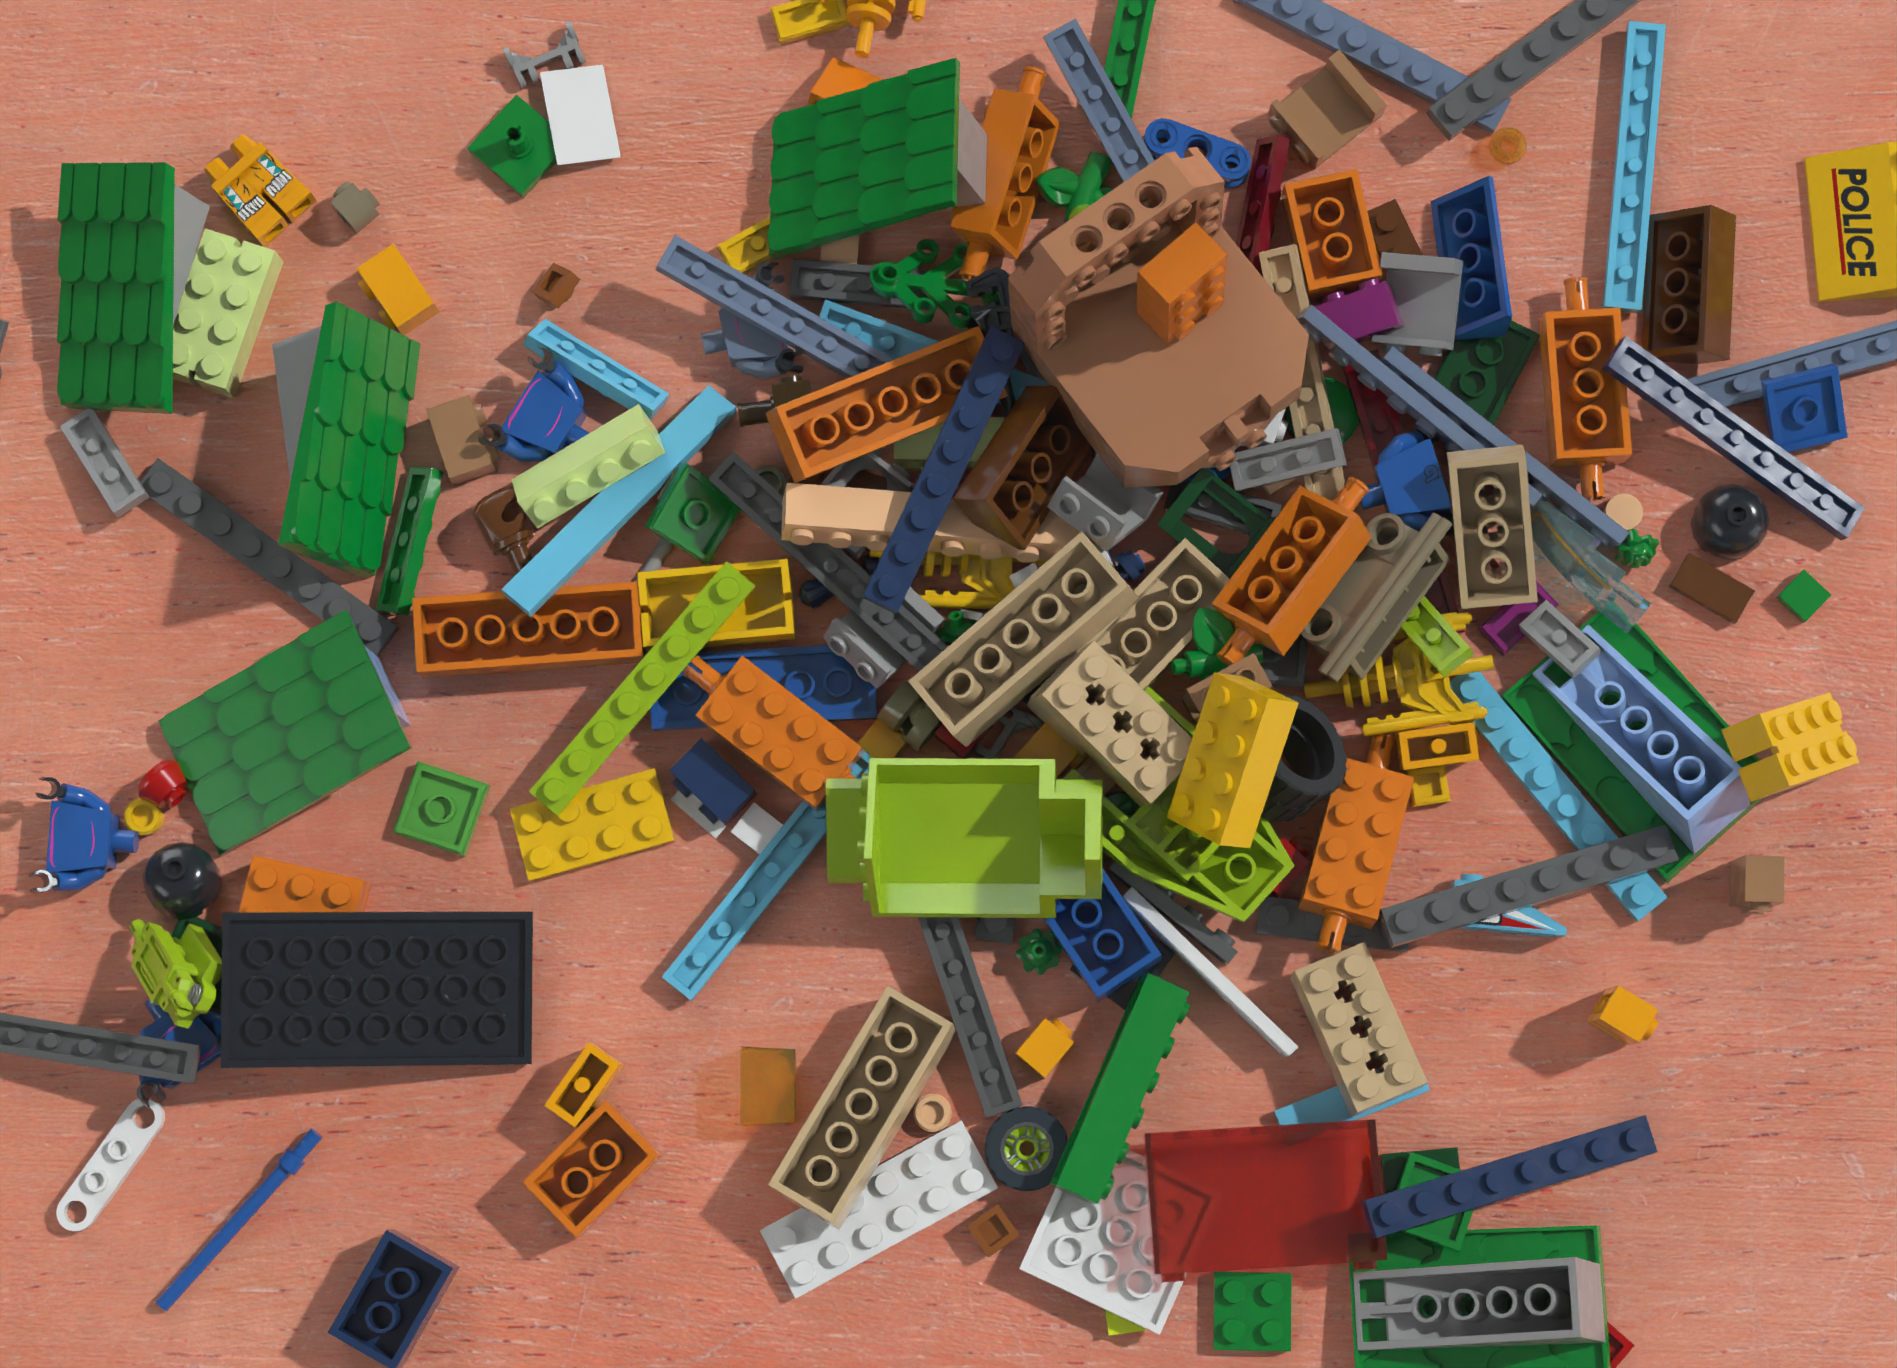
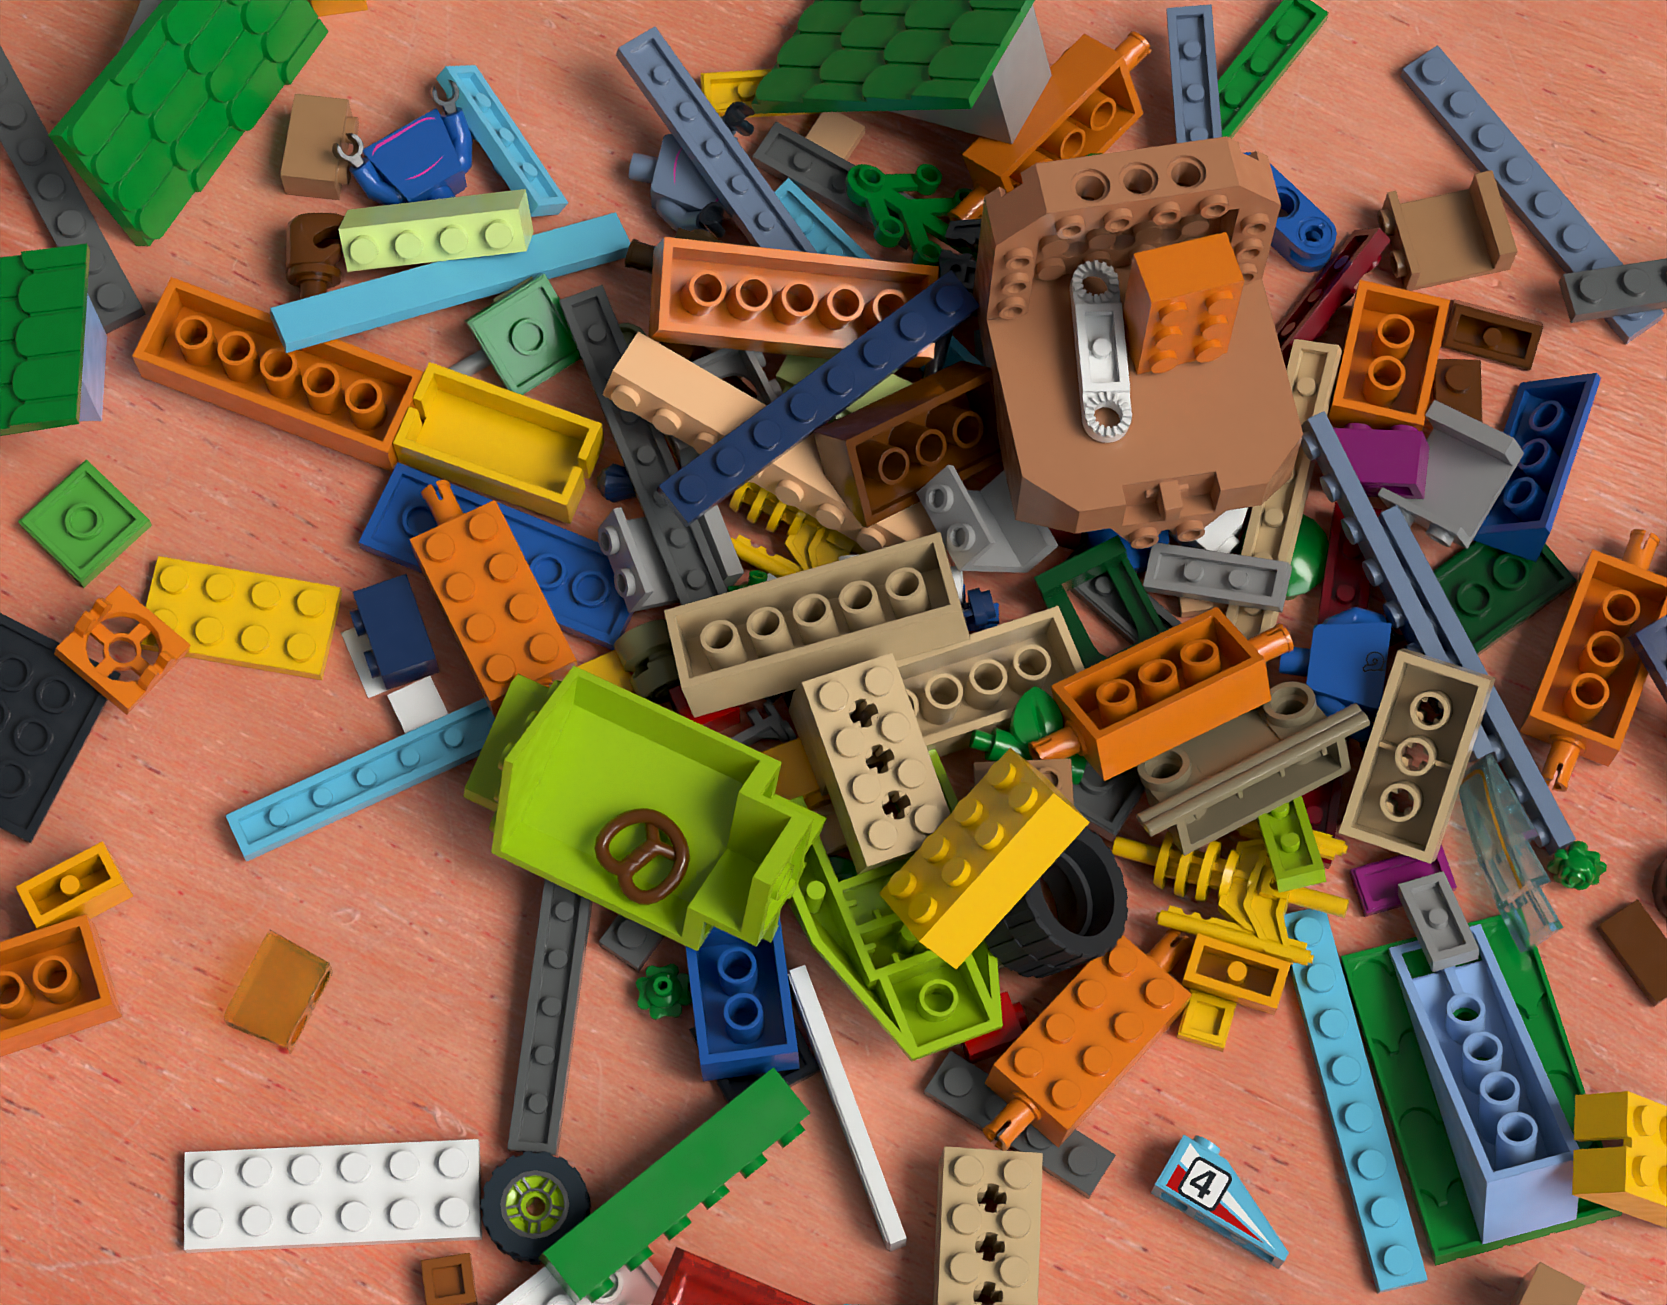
camera: 20 degrees right, 10 degrees down
(409, 541) = (213, 215): green plate -> none
(543, 927) = (120, 693): none -> orange piece
(556, 285) = (505, 36): dark orange plate -> none
(642, 688) = (367, 487): lime plate -> none
(863, 1107) = (370, 1065): tan brick -> none
(932, 1112) = (450, 1116): light nougat tile -> none
(983, 870) = (644, 853): none -> reddish brown piece
(1046, 1046) = (617, 1101): light orange brick -> none
(1135, 342) = (1100, 351): none -> white plate
(1186, 918) = (851, 1036): dark grey plate -> none
(1395, 172) = (1492, 334): none -> reddish brown slope
(1510, 135) = (1640, 350): clear yellow plate -> none
(1528, 886) = (1266, 1181): dark grey plate -> none
(1624, 510) = (1584, 818): light nougat tile -> none

